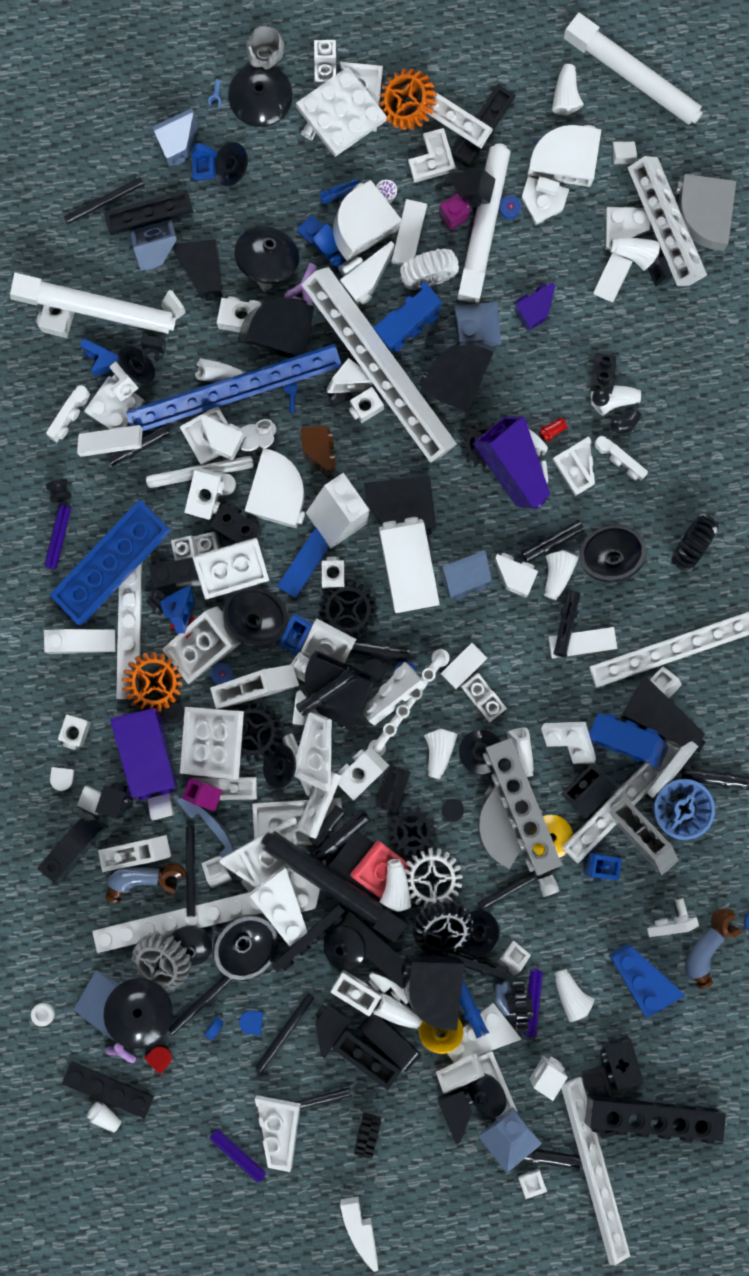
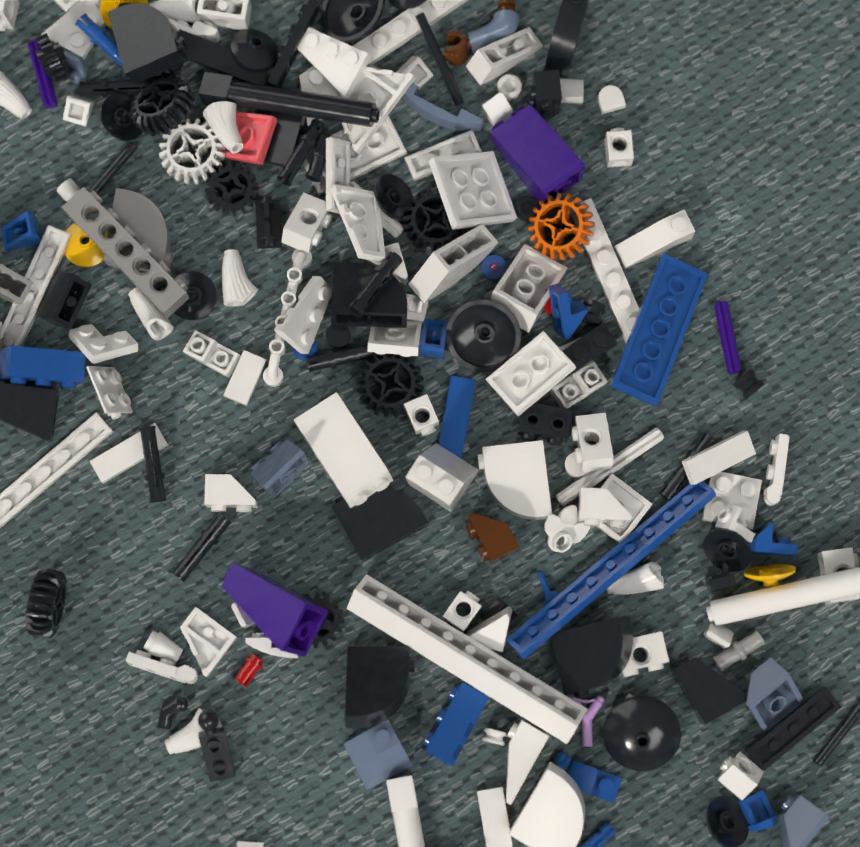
camera: 160 degrees right, 5 degrees down
(111, 333) = (770, 574): none -> yellow dish
(142, 825) = (509, 86): none -> white tile
(163, 287) = (739, 650): none -> light grey pin
(202, 794) = (460, 135): magenta brick -> none
(205, 192) = (740, 775): none -> white brick
(350, 265) = (544, 758): white slope -> none
(381, 300) = (494, 736): none -> white bush
(430, 267) = (455, 789): white gear -> none
(452, 810) = (198, 227): black tile -> none
(535, 308) = (319, 799): dark purple slope -> none
(559, 572) = (181, 516): white piece -> none
(579, 697) = (110, 390): none -> white hinge
(612, 544) = (142, 567): black dish -> none
(614, 475) = (162, 647): none -> white cone
(666, 681) = (25, 447): white slope -> none

